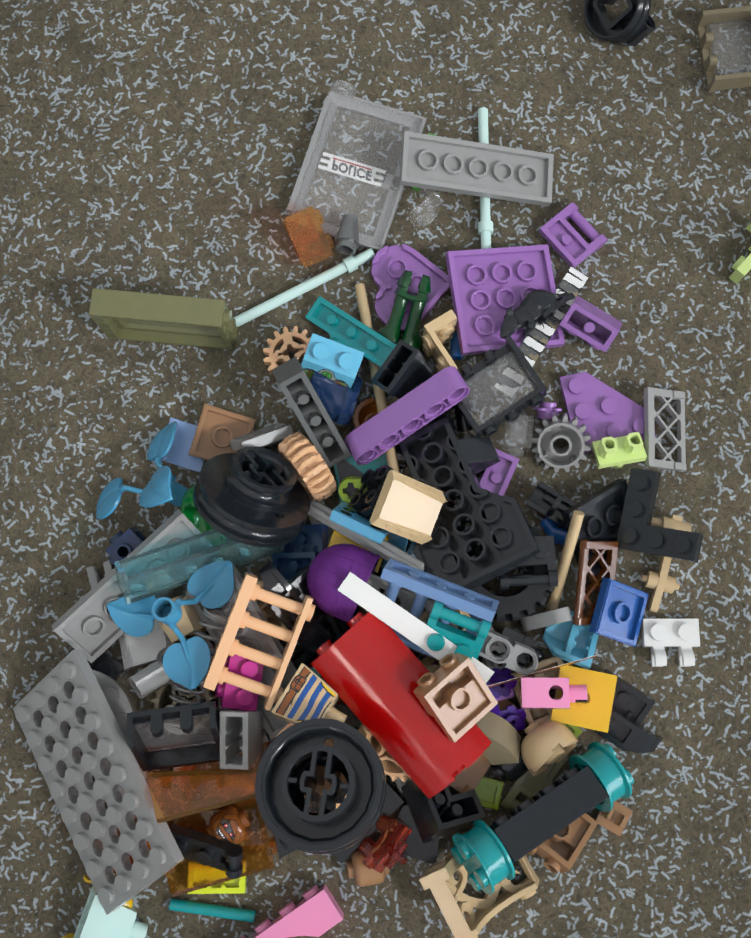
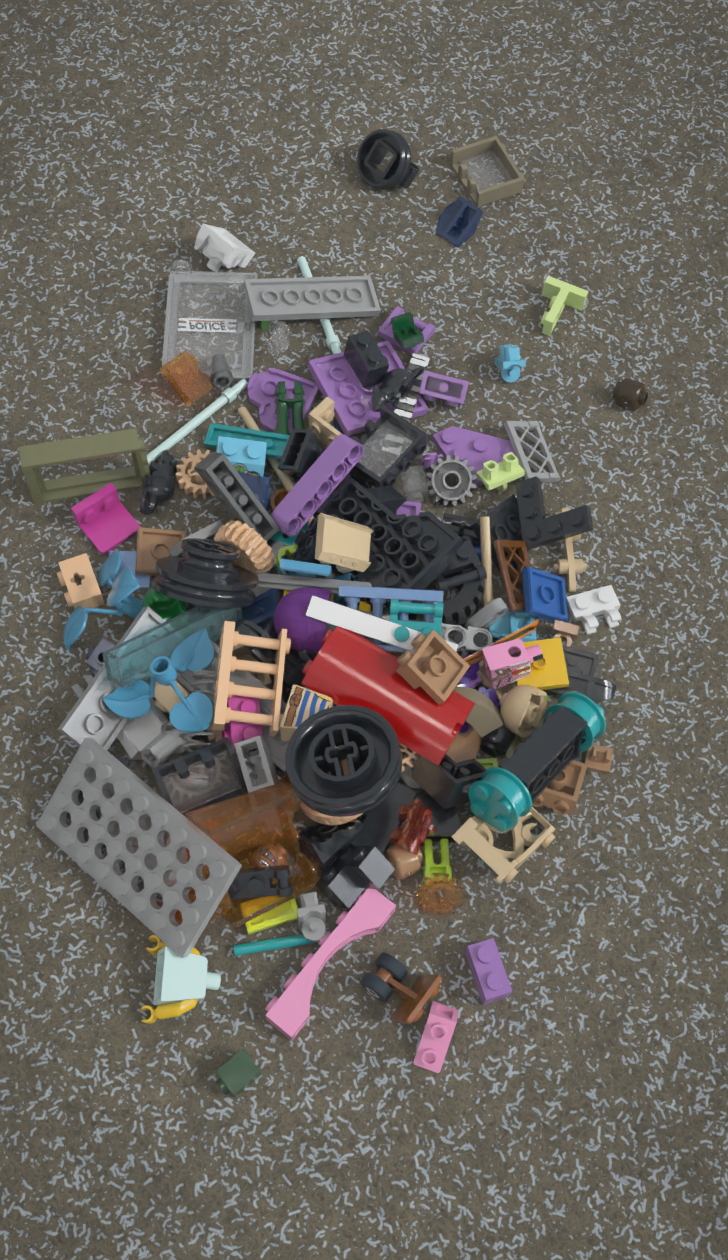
camera: 25 degrees left, 15 degrees down
(135, 464) = (77, 571): none -> light nougat brick
(175, 383) = (104, 519): none -> dark pink bracket
(245, 355) = (159, 484): none -> black animal
(253, 904) = (311, 917): none -> light grey hips
(304, 873) = (353, 872): none -> black brick
(396, 75) = (222, 248): none -> white brick
(404, 889) = (430, 867): none -> lime piece
(406, 922) = (442, 904): none -> clear orange gear
(512, 268) = (366, 359): none -> black brick
(570, 242) = (405, 331): none -> dark green bracket
(625, 659) = (565, 630): none -> tile
(677, 310) = (509, 362): none -> medium azure hips
(679, 107) = (459, 221): none -> dark blue slope

